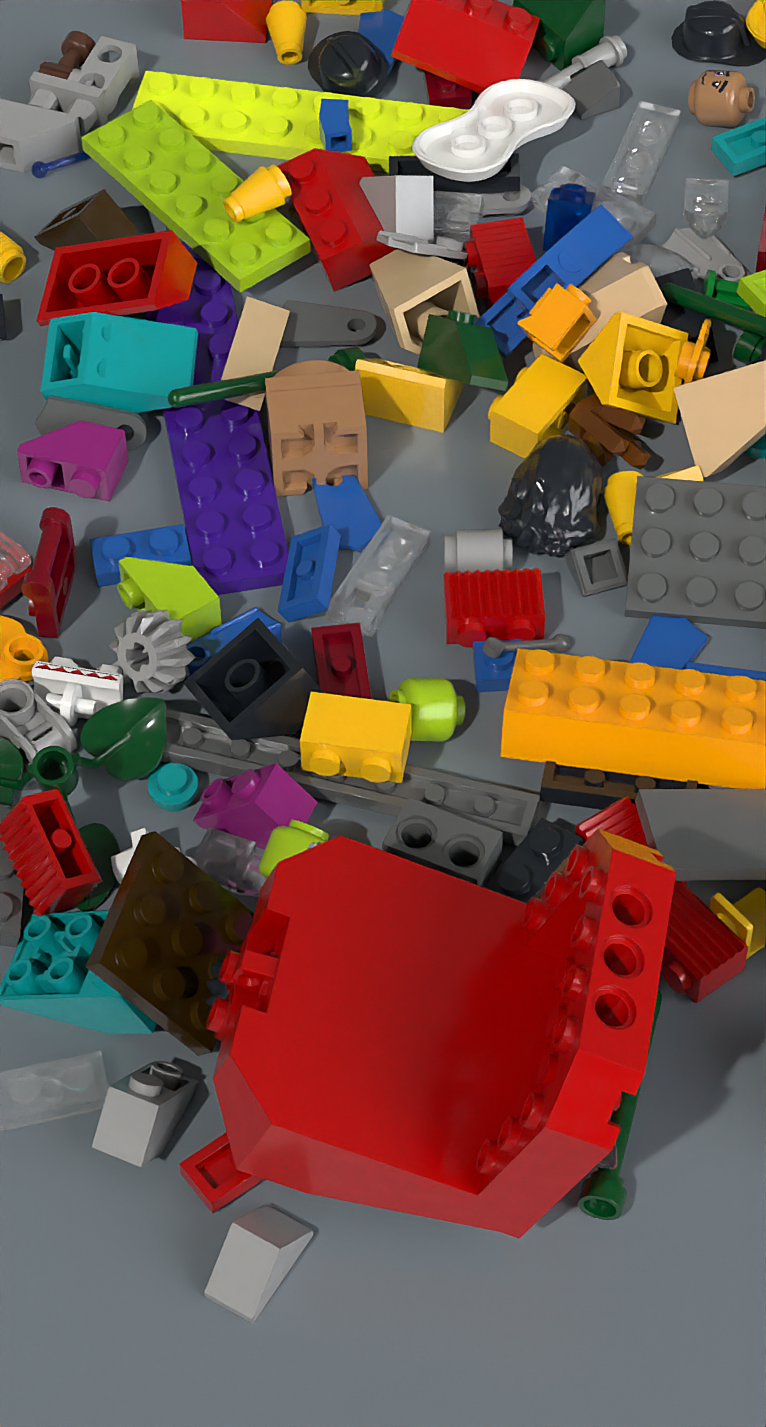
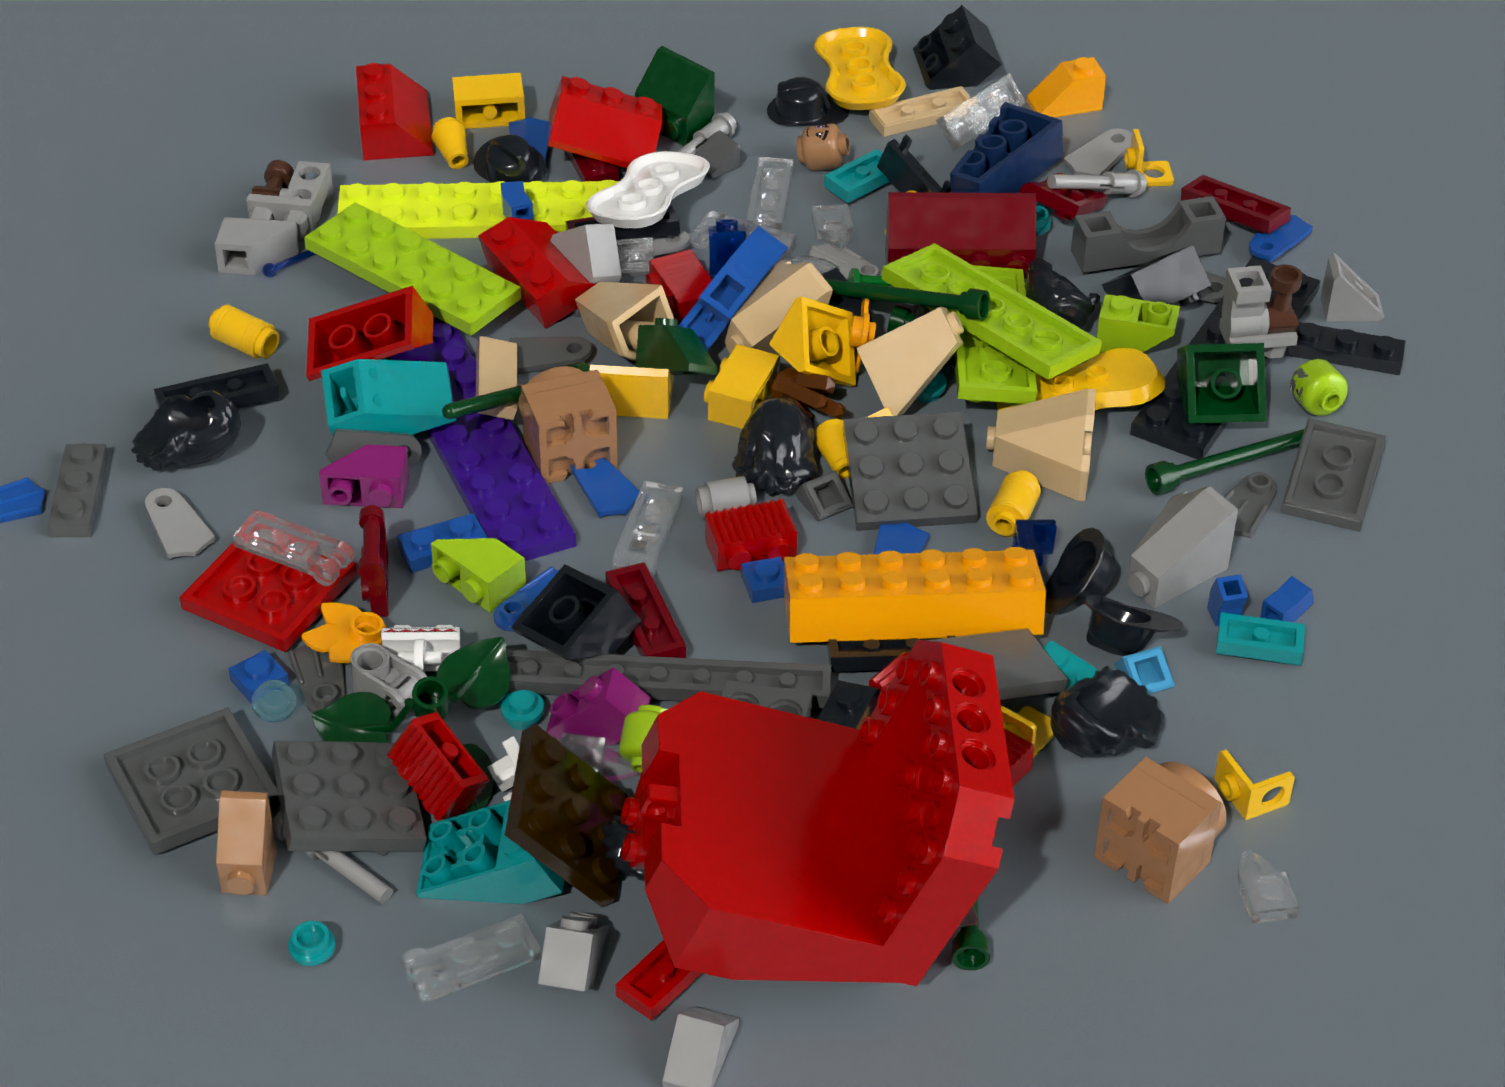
camera: 15 degrees left, 10 degrees down
(86, 222) = (328, 295): dark brown slope -> none
(152, 651) = (464, 602): light grey gear -> none
(257, 194) = (471, 255): yellow cone -> none
(309, 573) = (591, 533): blue plate -> none
(356, 737) = (671, 642): yellow brick -> none
(433, 705) = (718, 617): lime head -> none
(443, 247) = (604, 276): light grey piece -> none
(494, 647) = (763, 561): dark grey hinge -> none
(559, 320) = (748, 314): light orange window -> none

